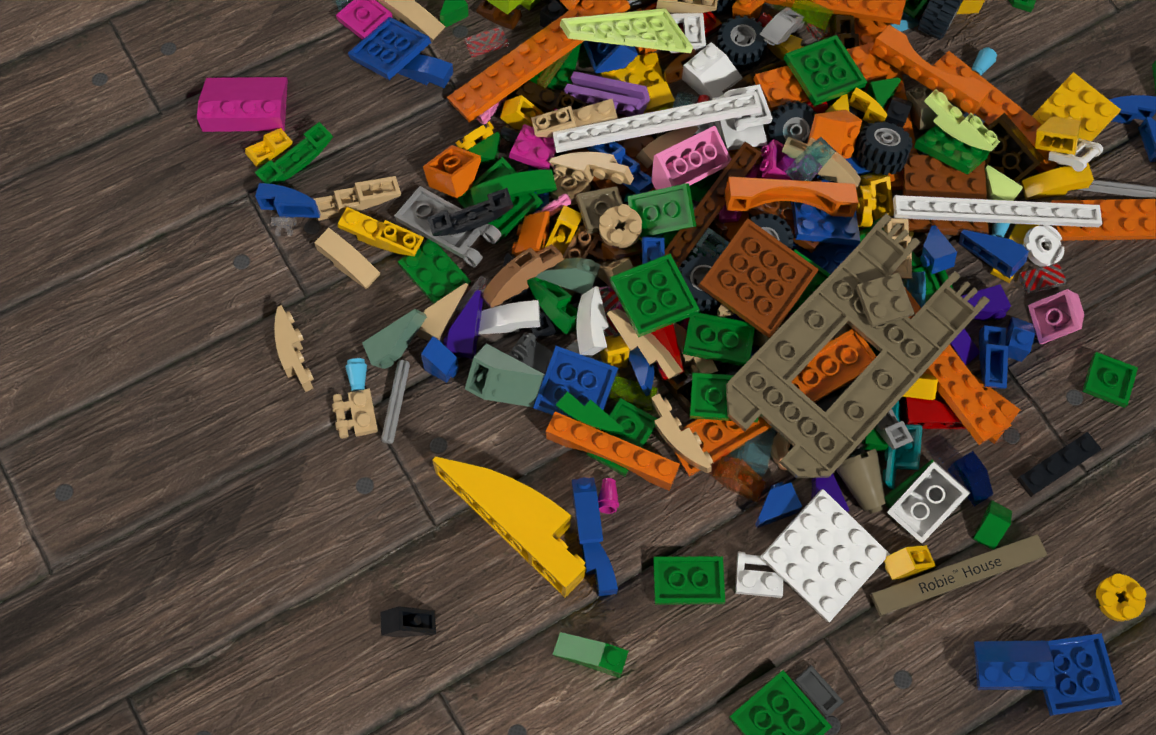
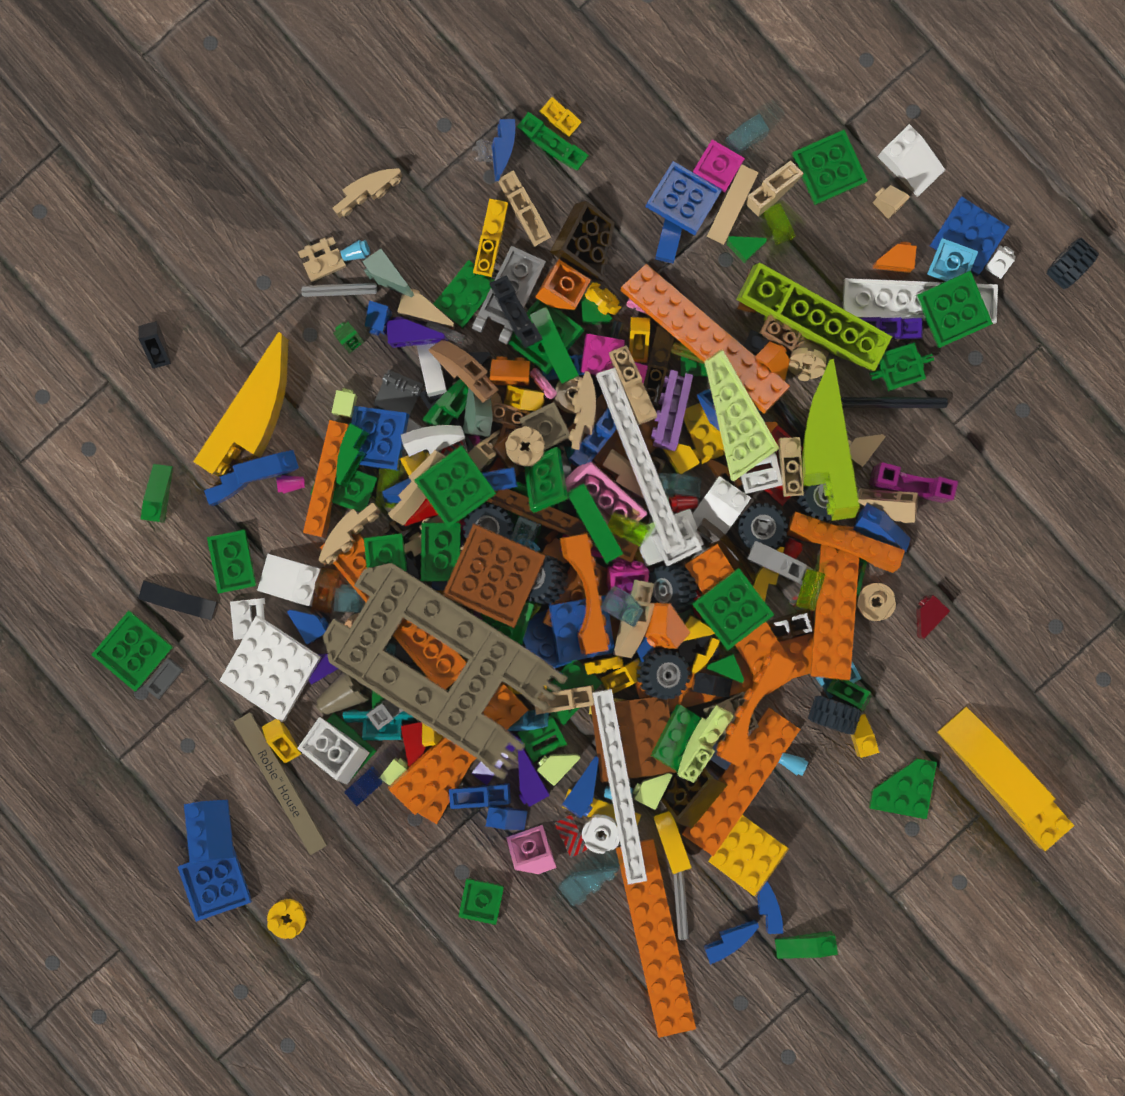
camera: 85 degrees right, 20 degrees up
(243, 104) = (601, 80): dark pink slope -> none
(346, 258) = (460, 215): tan slope -> none
(406, 144) = (585, 240): none -> dark brown wedge
(453, 393) = (348, 337): none -> green slope
(486, 42) = (716, 286): clear tile -> none
(503, 378) = (370, 373): sand green slope -> none
(528, 417) = (344, 403): none -> yellowish green brick
(716, 170) = (595, 523): none -> green slope
(721, 516) = (288, 579): none -> white slope
(724, 658) = (177, 600): none -> black slope
(727, 146) = (629, 529): none -> clear neon green slope
(884, 300) = (491, 688): dark tan plate -> none
(937, 252) = (570, 734): blue slope -> none
(958, 441) = (394, 770): none -> yellowish green brick
(968, 271) = (556, 766): none -> yellowish green slope
(993, 525) = (329, 808): green slope -> none
(1058, 135) = (713, 838): yellow torso -> none
(1059, 464) = (395, 861): black plate -> none
(1094, 149) = (702, 850): white plate -> none
(1095, 273) = (581, 883): none -> clear light blue slope

